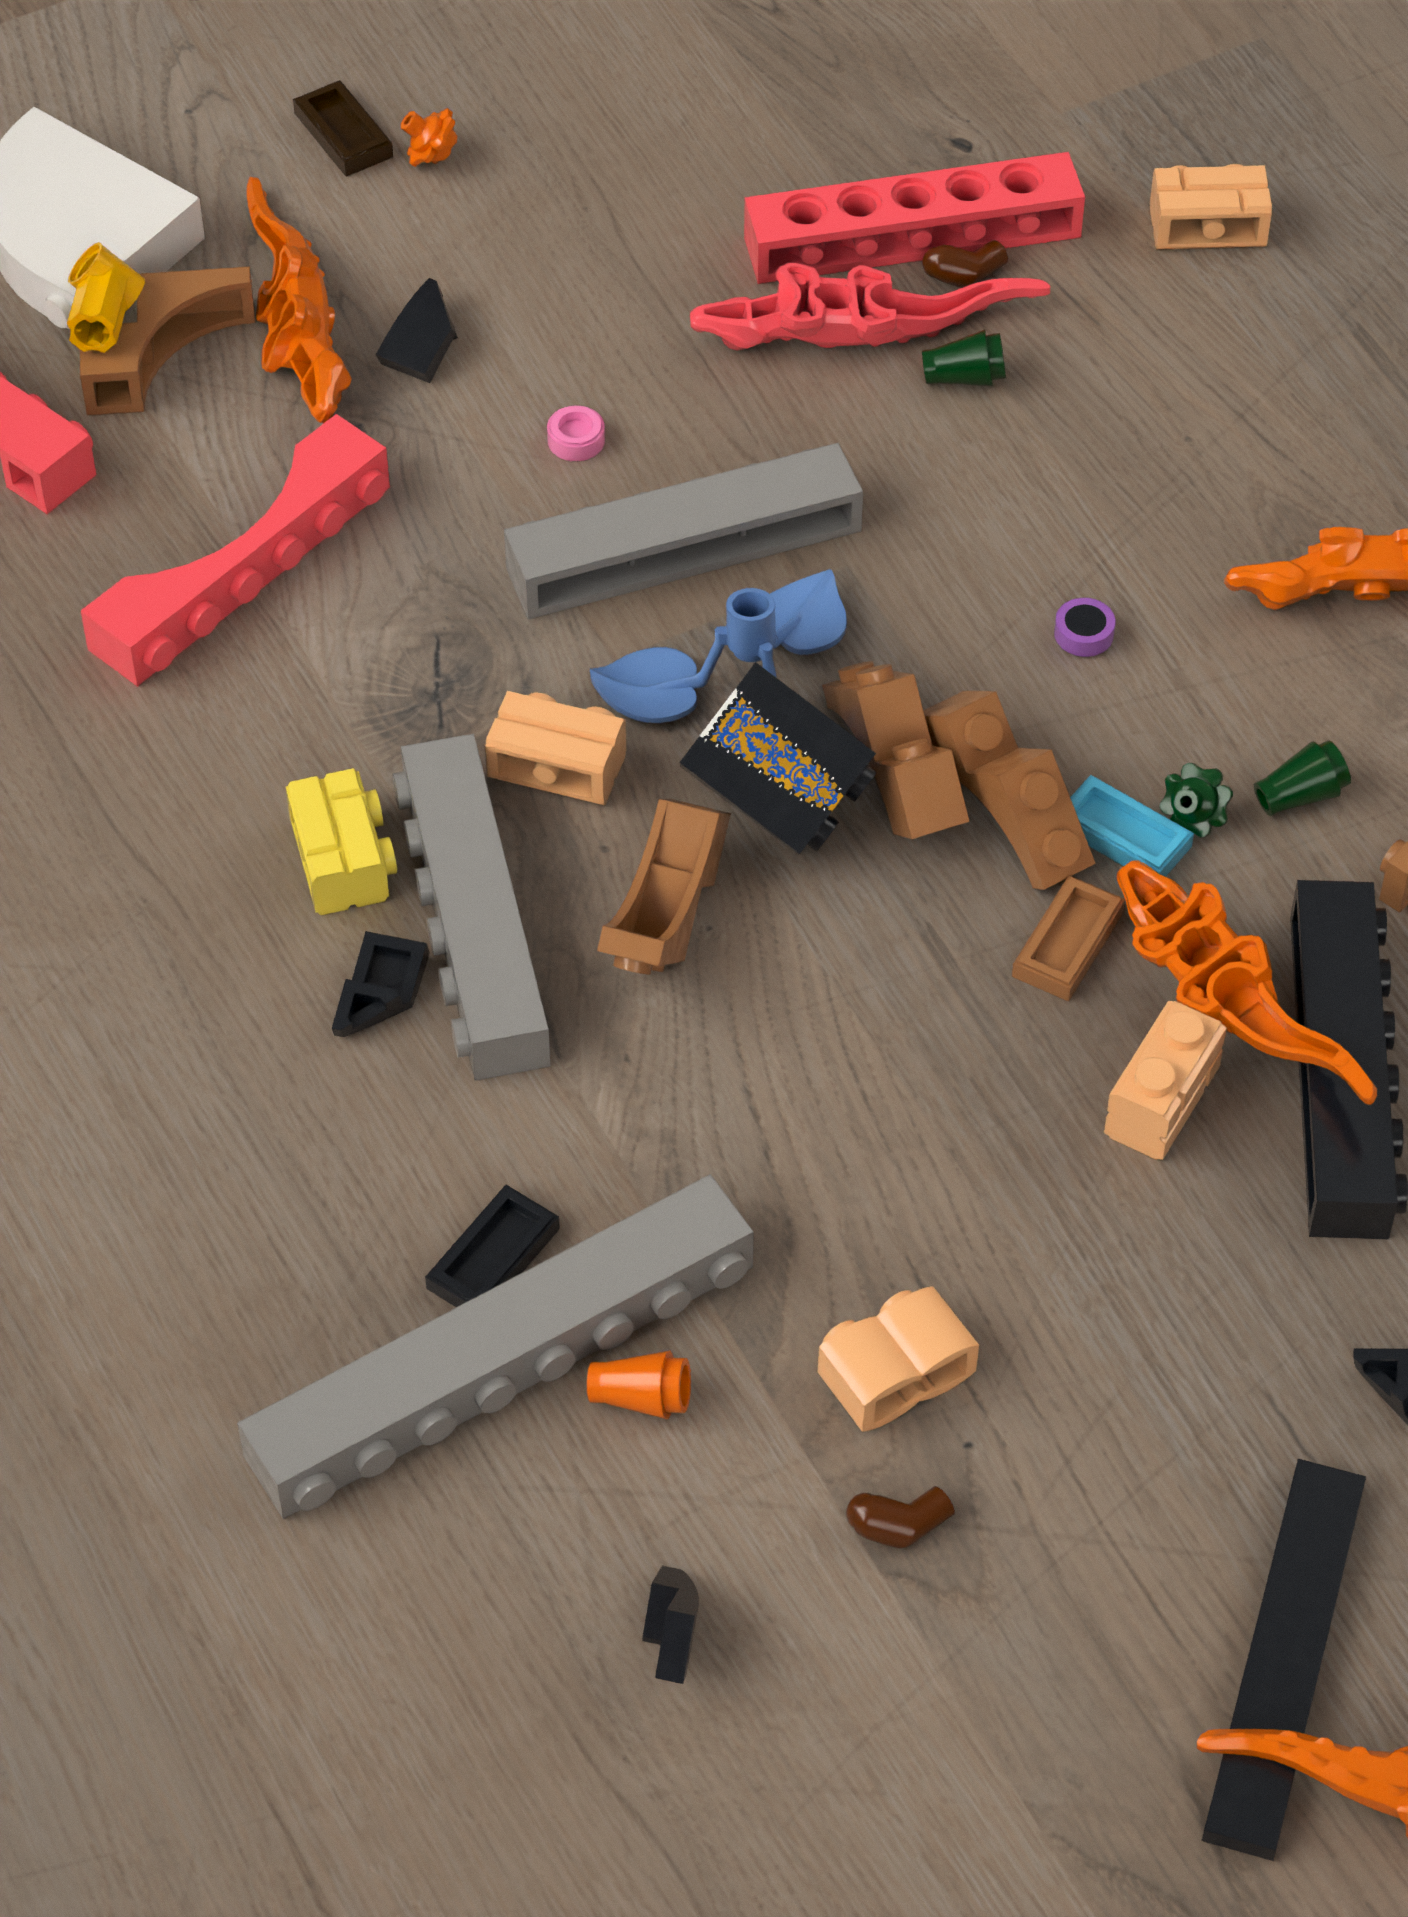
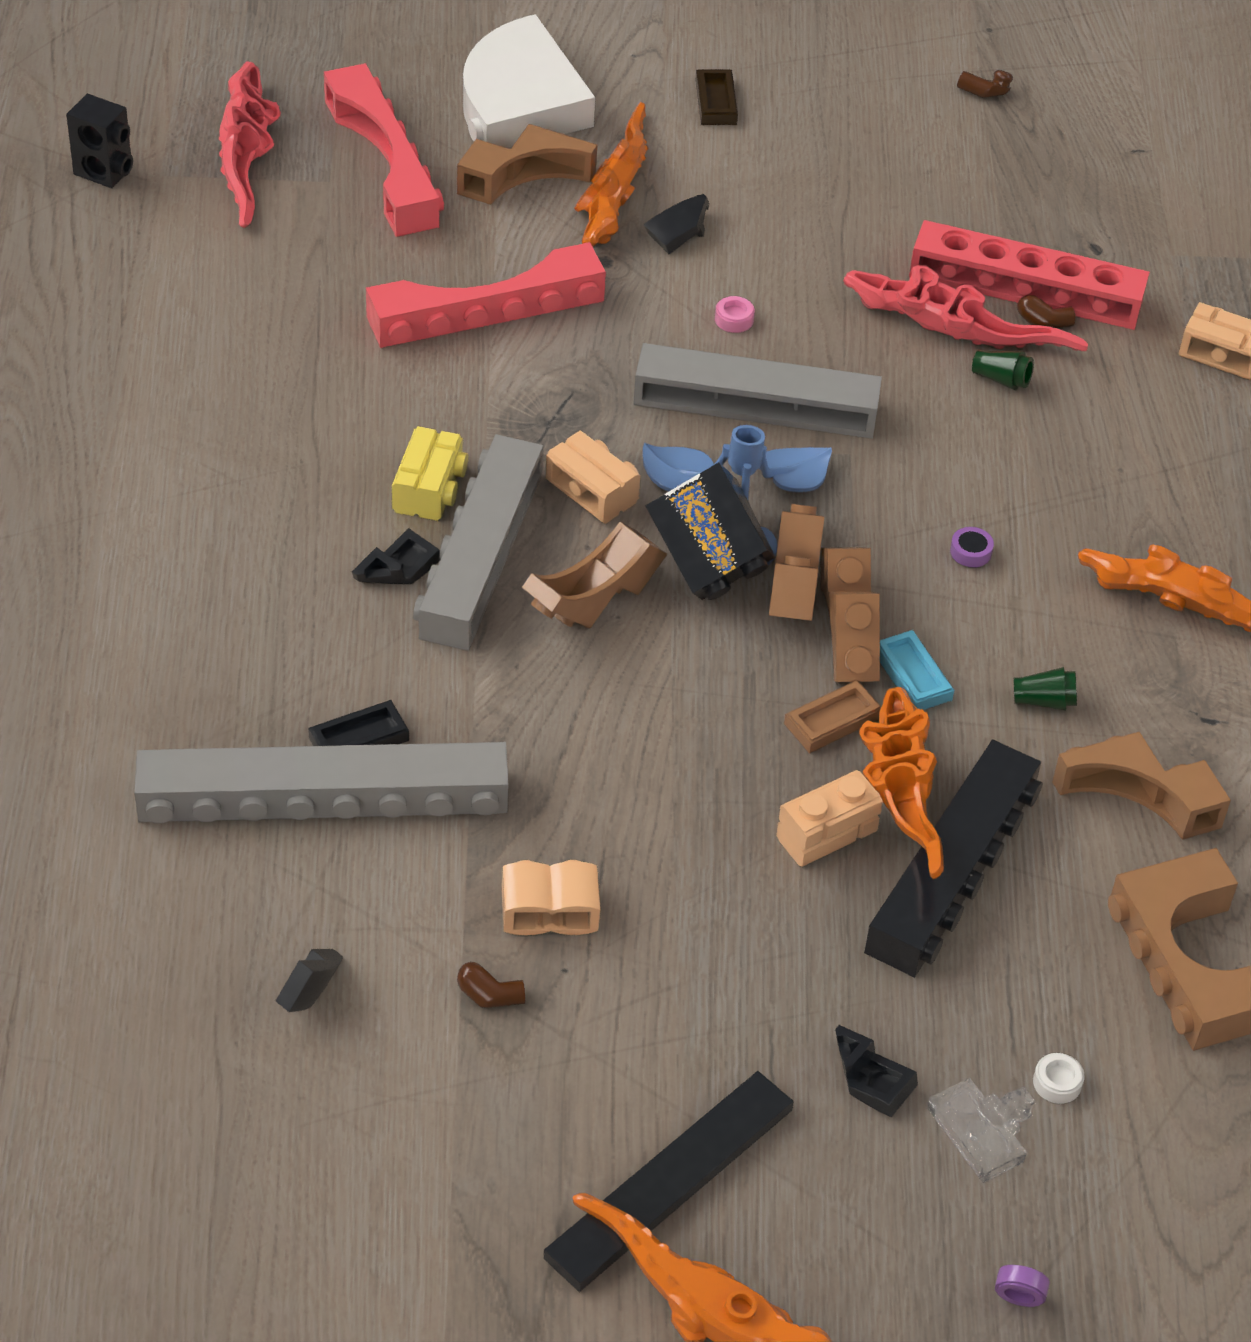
camera: 25 degrees right, 5 degrees down
(102, 296) = (495, 126): yellow piece -> none
(430, 136) = (761, 119): orange plant -> none
(644, 1383) = (392, 843): orange cone -> none
(1196, 799) = (968, 671): dark green plant -> none

